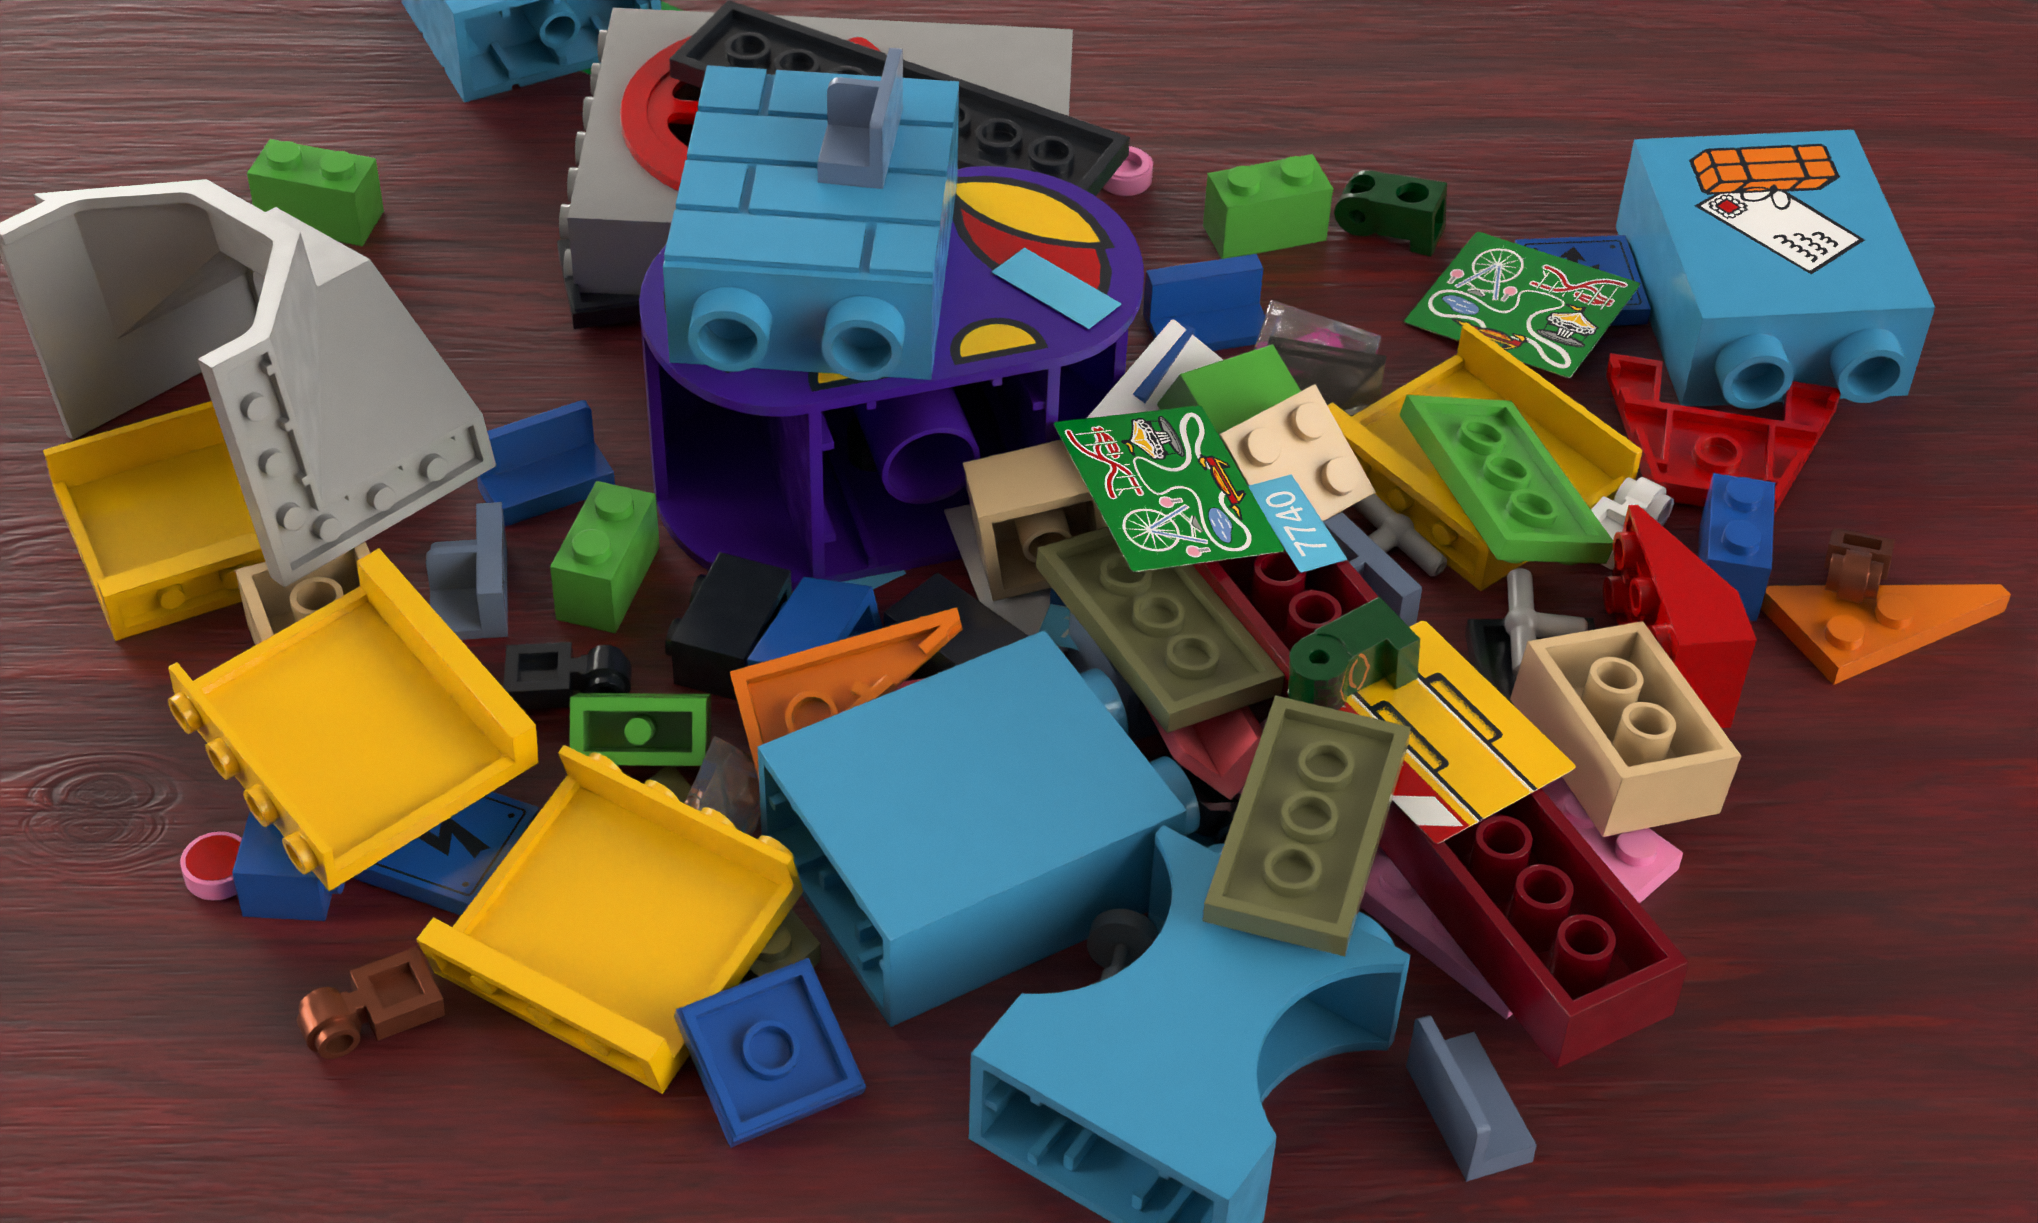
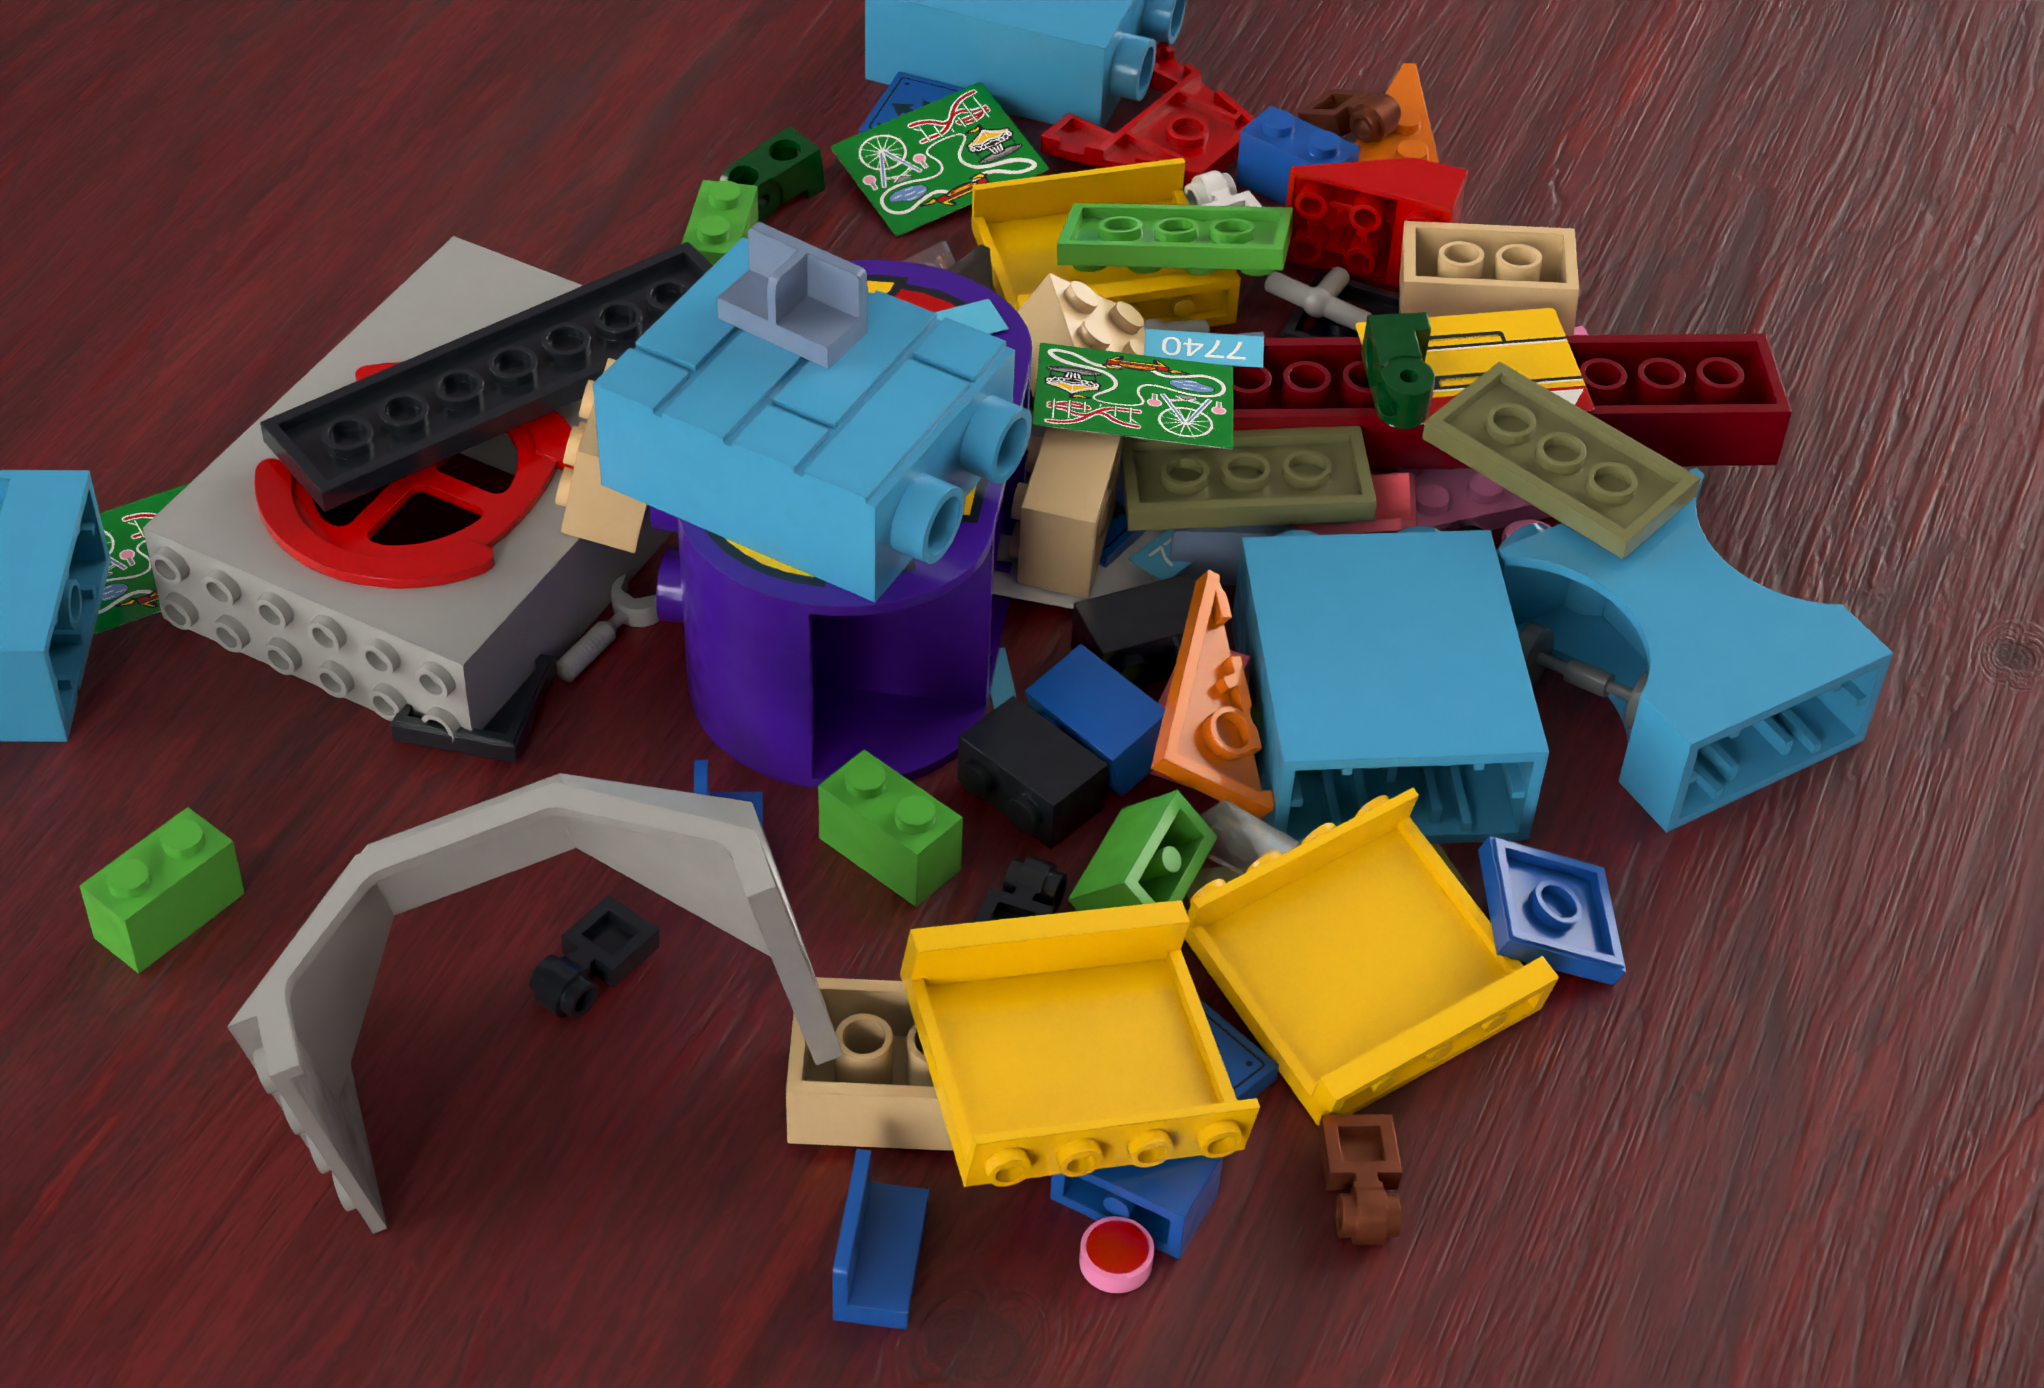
camera: 65 degrees left, 0 degrees up
(129, 699) = (878, 1249): none -> blue panel
(156, 518) = (600, 1140): yellow panel -> none
(472, 578) = (848, 929): sand blue panel -> none
(1468, 1102) = (1768, 533): sand blue panel -> none

